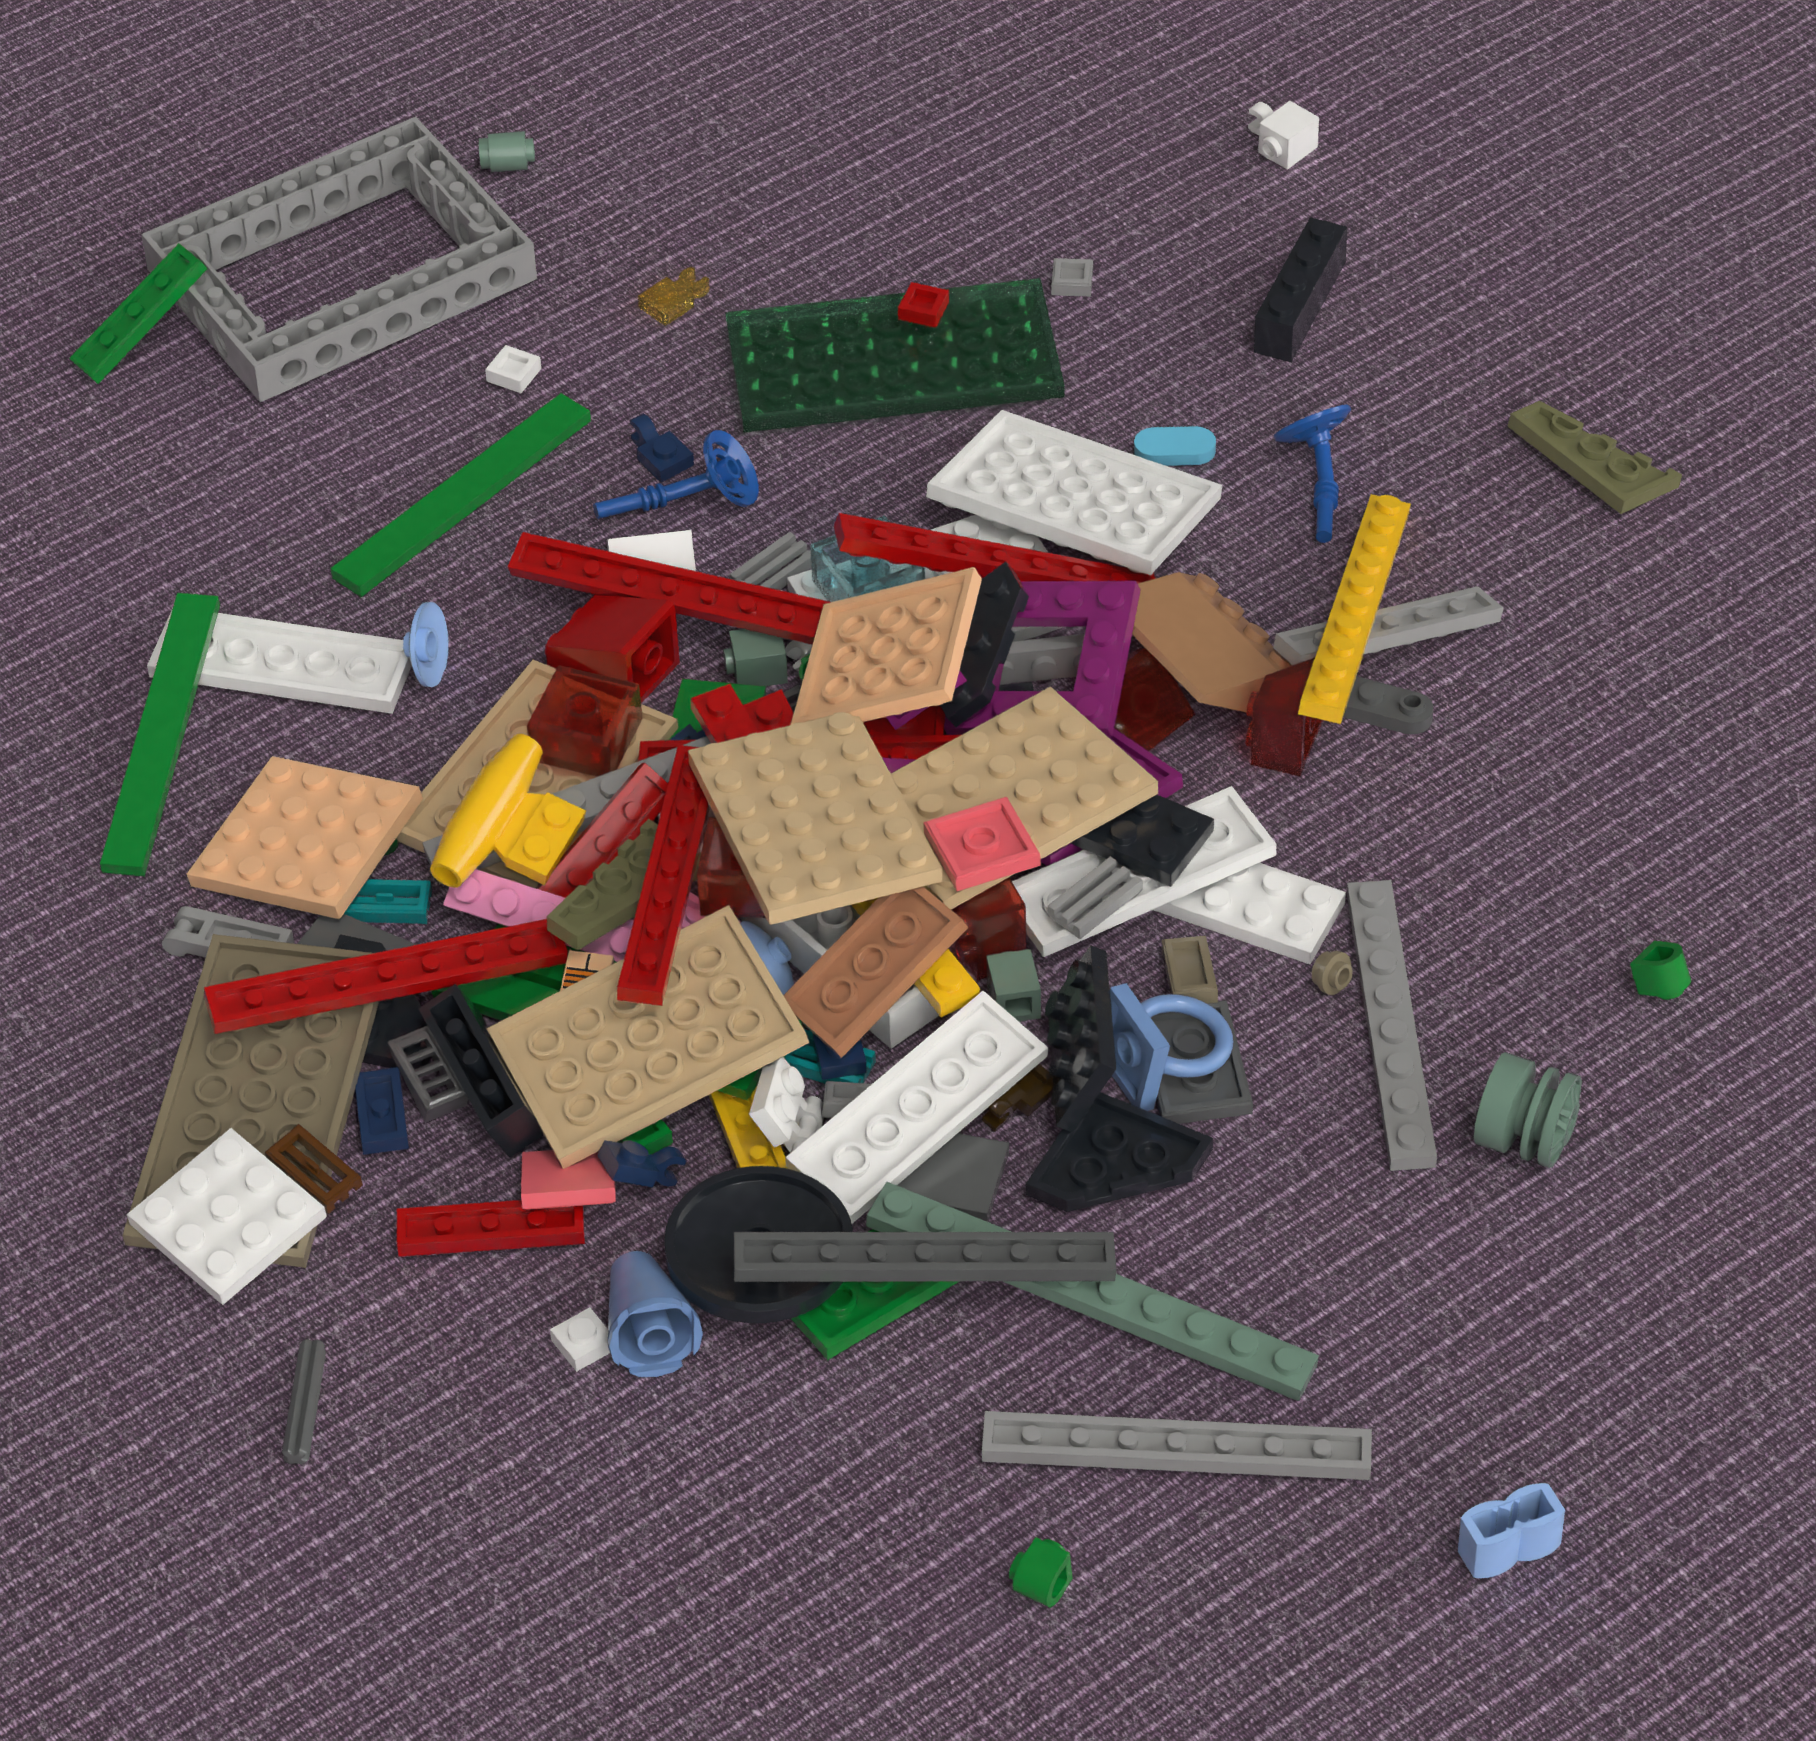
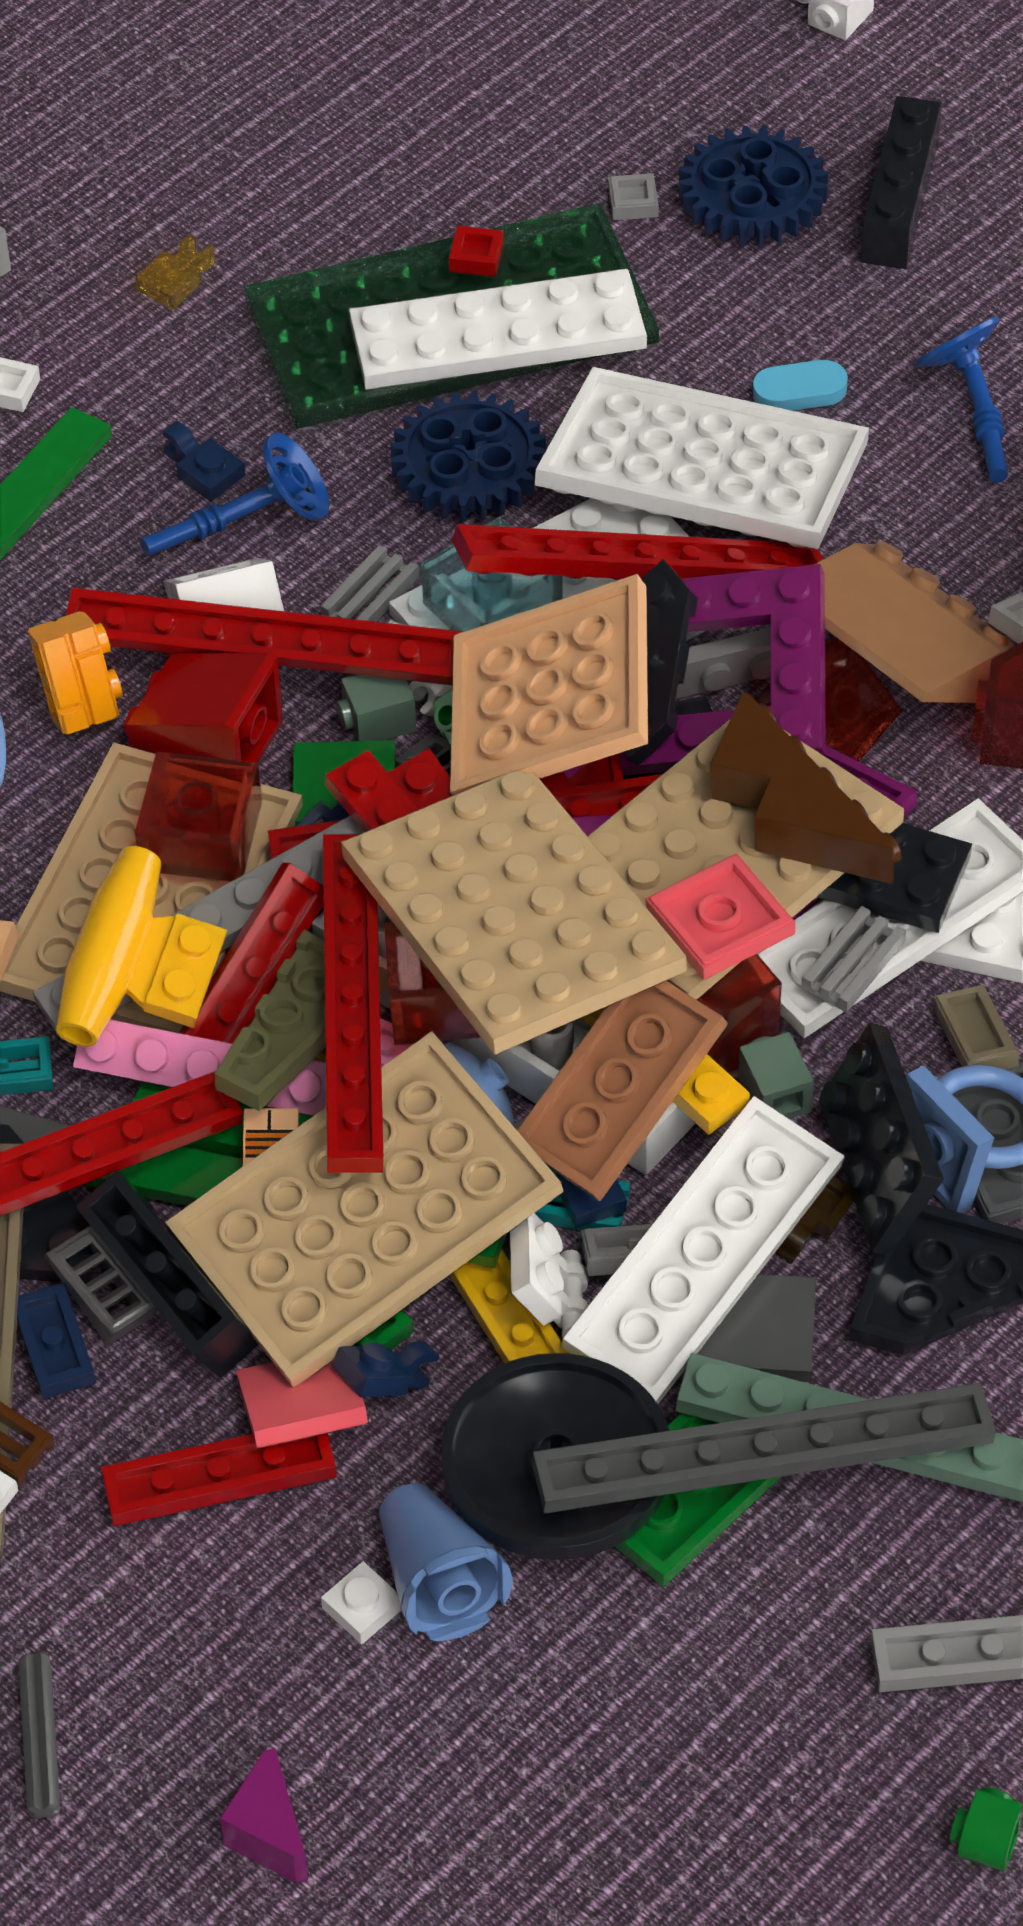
camera: 10 degrees left, 5 degrees up
(463, 1487) = (262, 1821): none -> magenta slope
(512, 599) = (75, 672): none -> light orange brick
(878, 468) = (467, 455): none -> dark blue gear
(927, 369) = (497, 329): none -> white plate
(1061, 761) = (796, 801): none -> reddish brown slope
(1174, 278) = (753, 185): none -> dark blue gear

